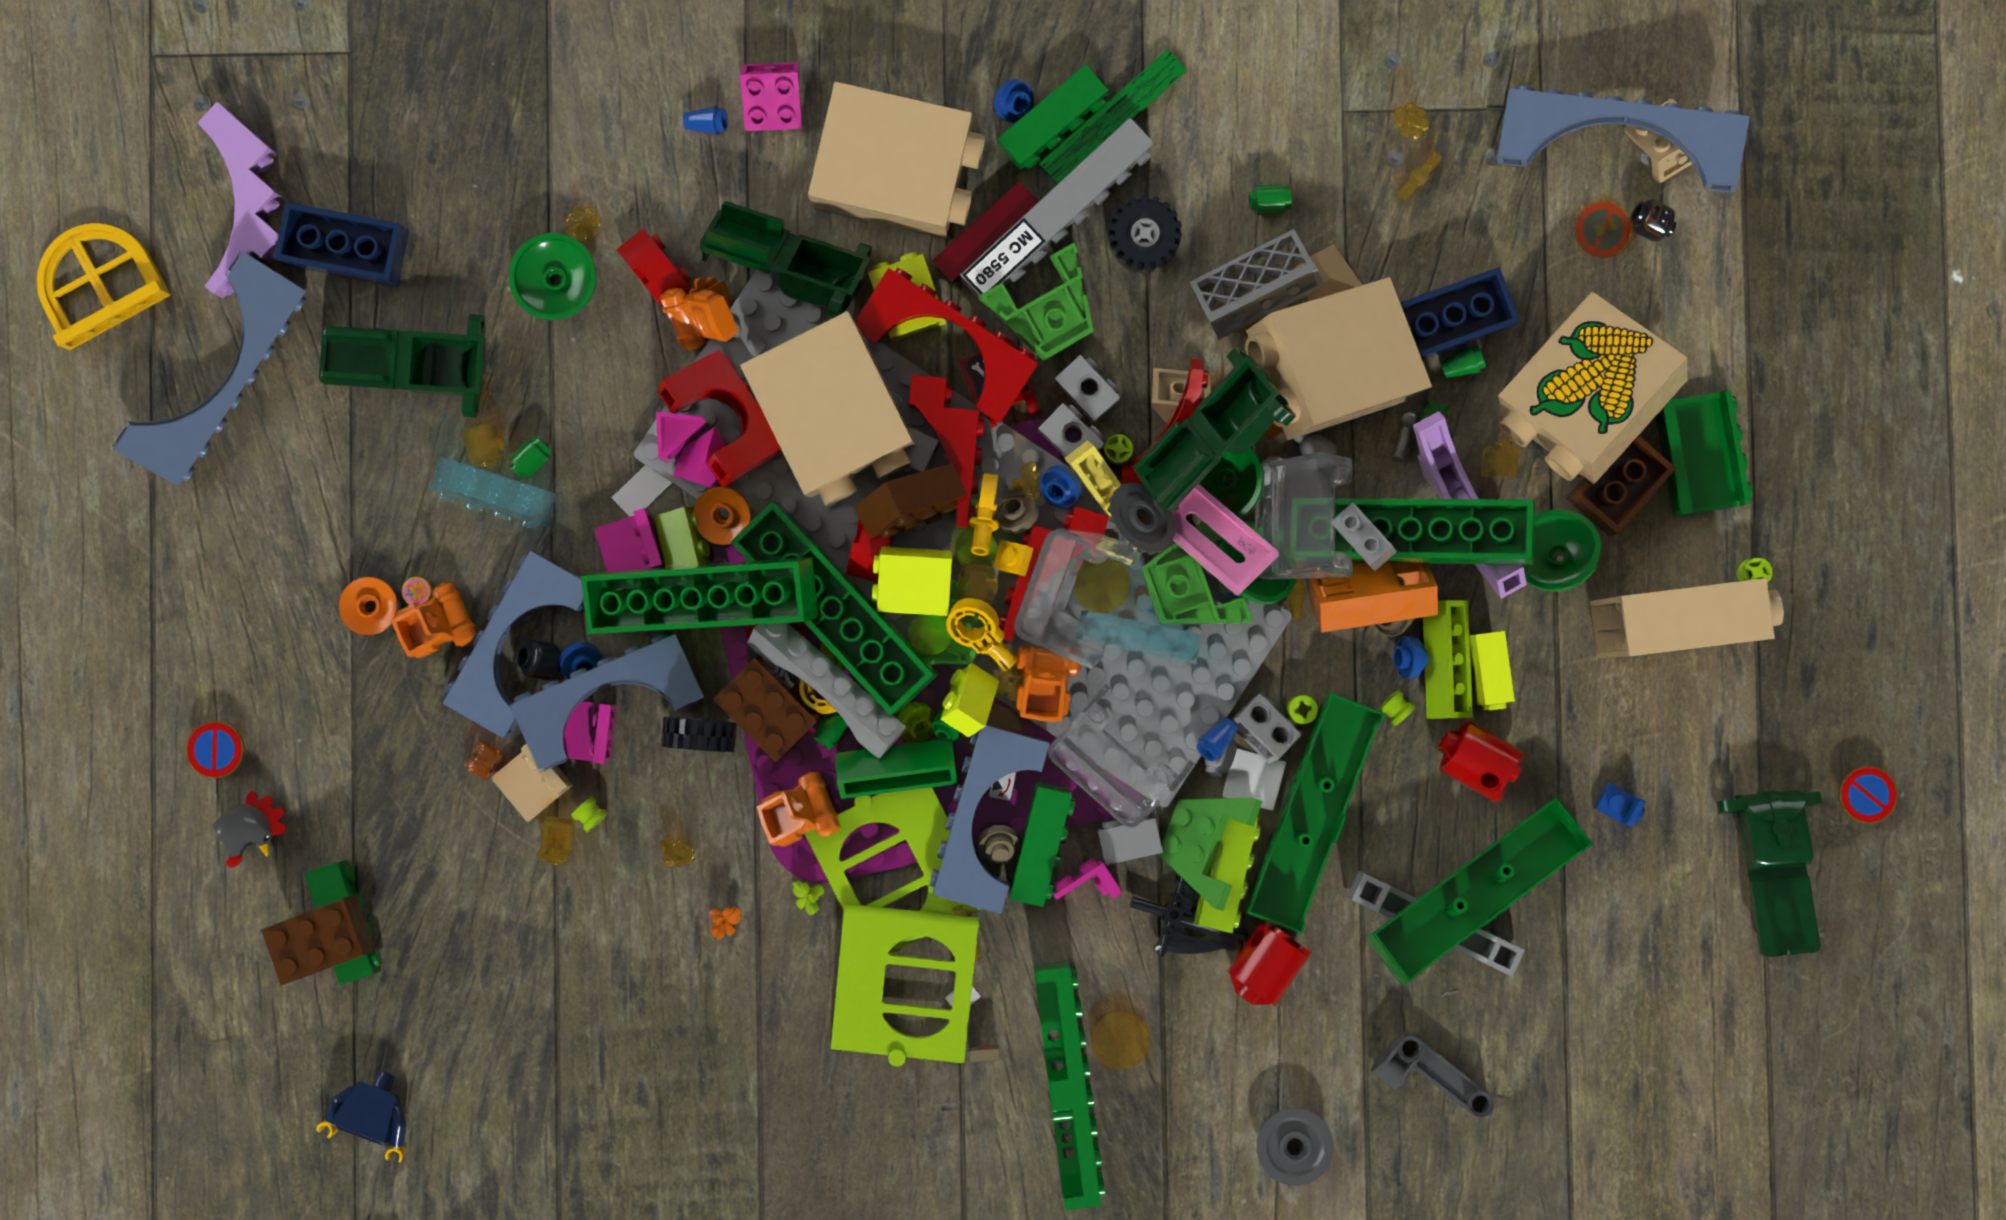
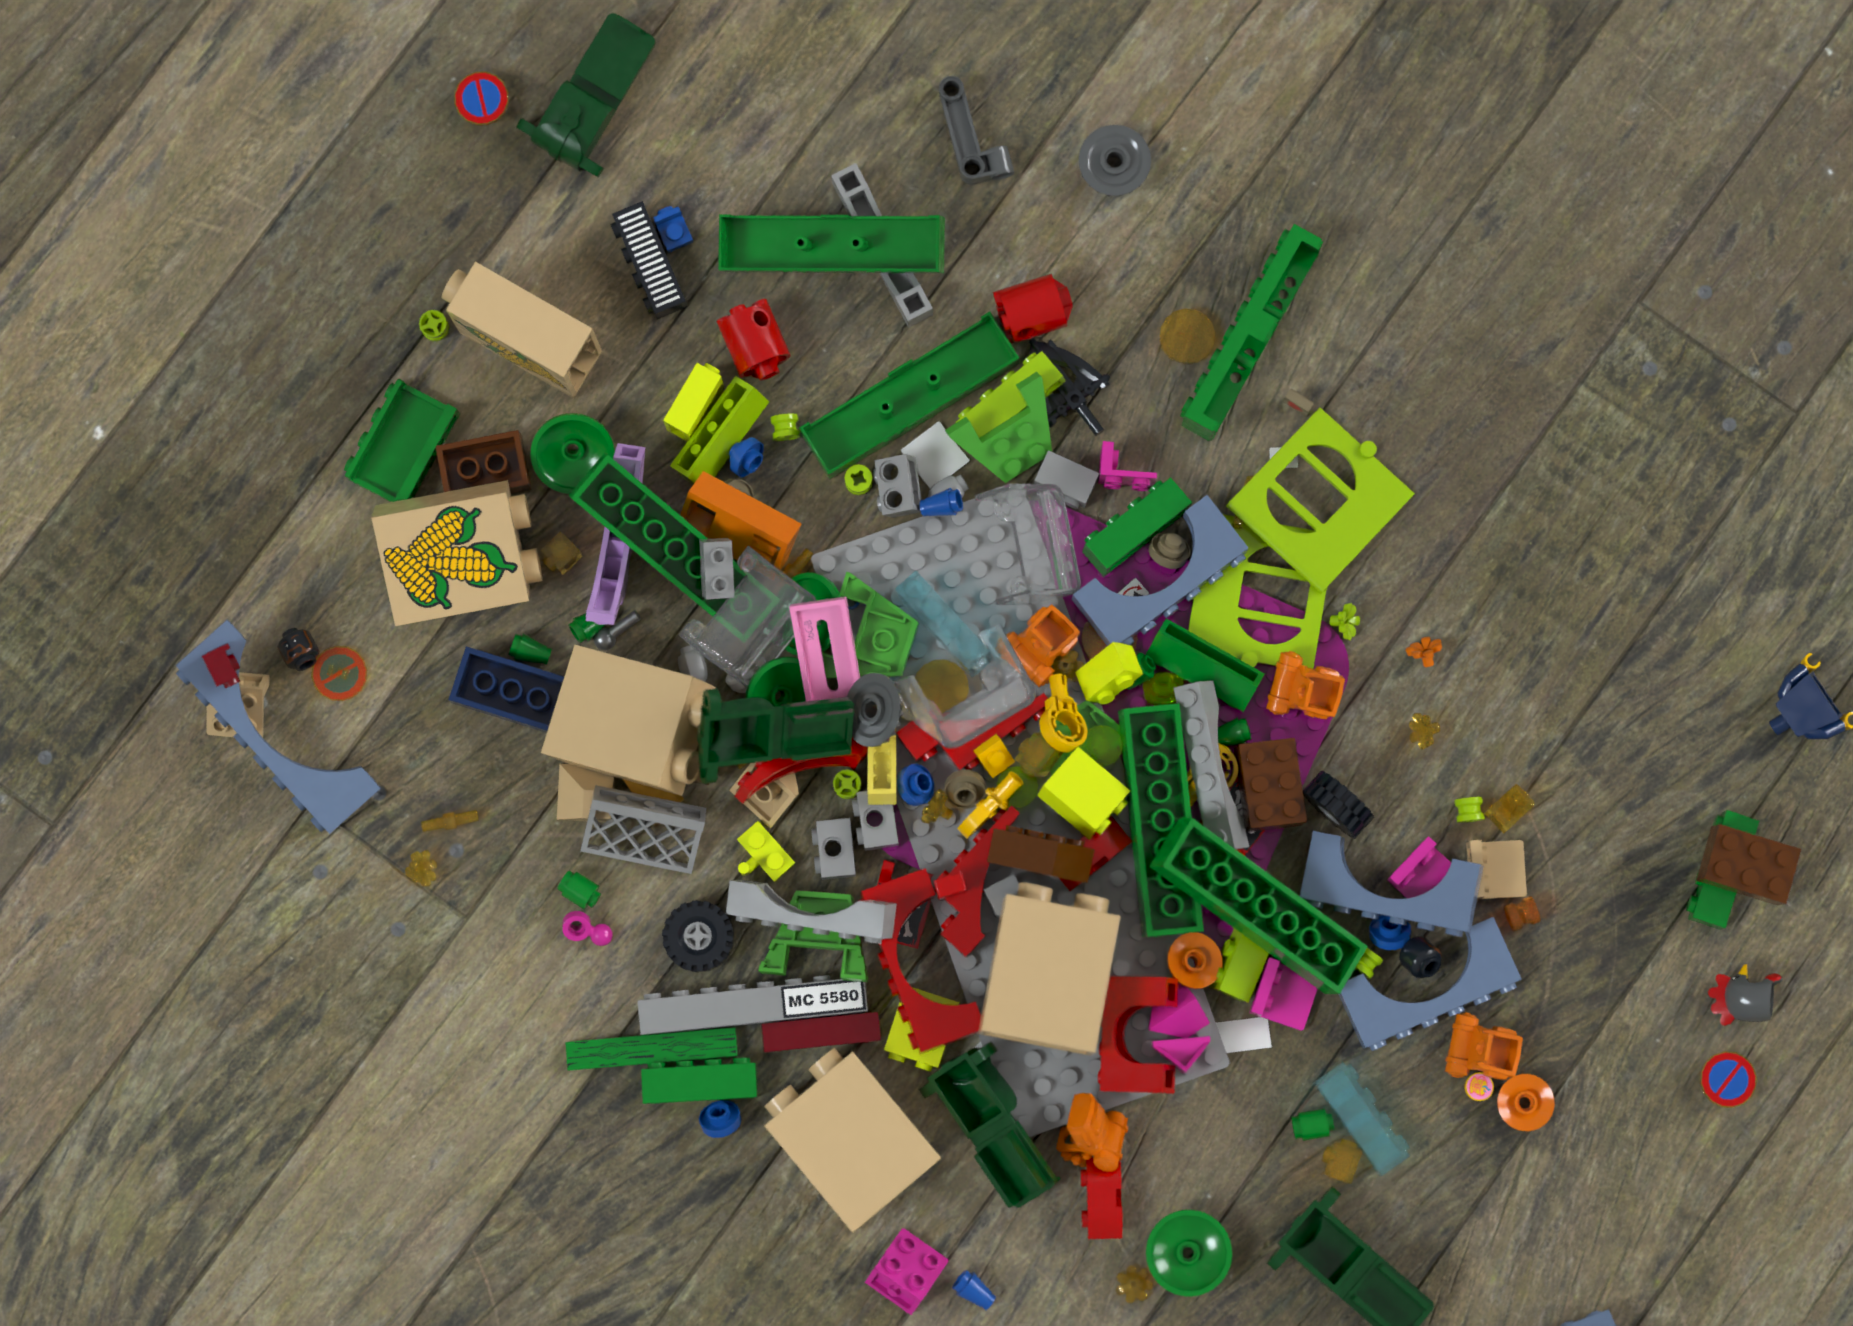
camera: 140 degrees left, 5 degrees down
(578, 623) = (1368, 963): none -> lime wheel
(967, 420) = (950, 886): none -> red piece
(1114, 297) = (758, 901): none -> light grey arch
(1142, 344) = (764, 852): none -> neon yellow plate
(1225, 177) = (600, 934): none -> dark pink plate
(1620, 763) = (649, 261): none -> black brick
(1711, 142) = (222, 666): none -> dark red brick

